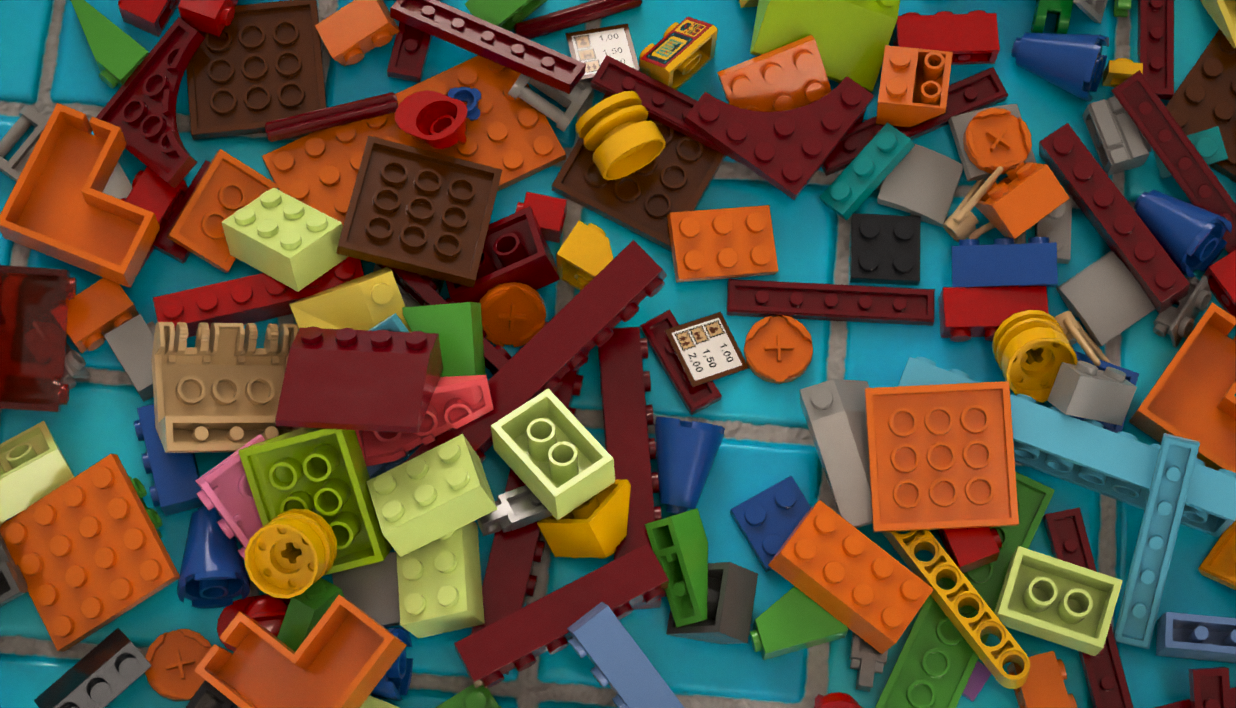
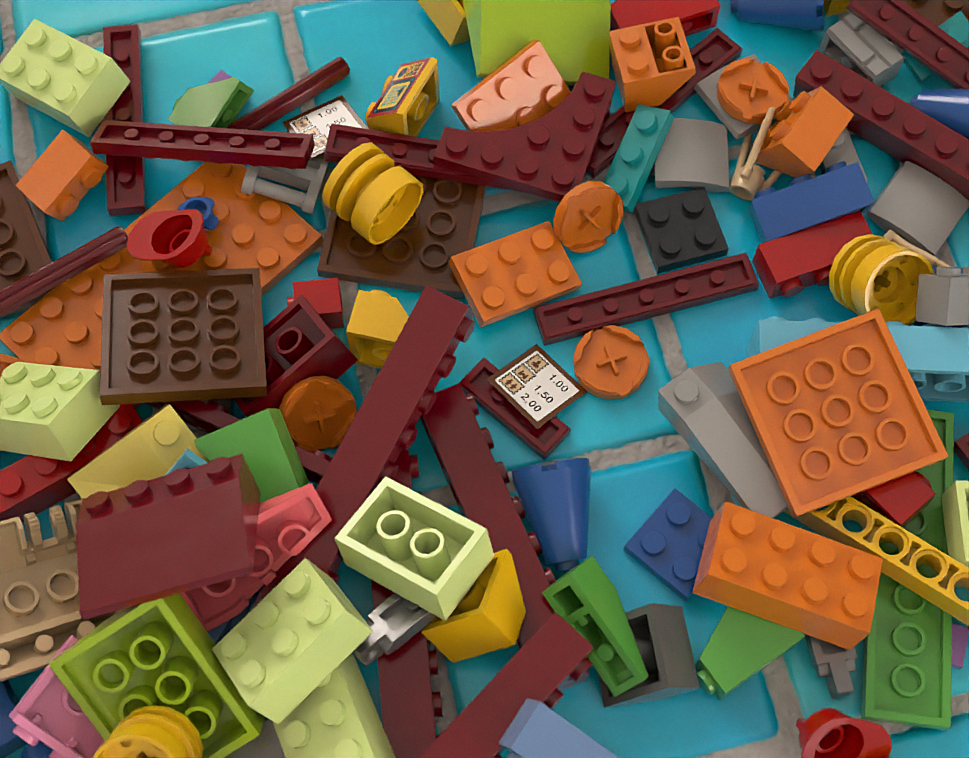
camera: 15 degrees left, 5 degrees down
(803, 213) = (588, 216): none -> orange tile

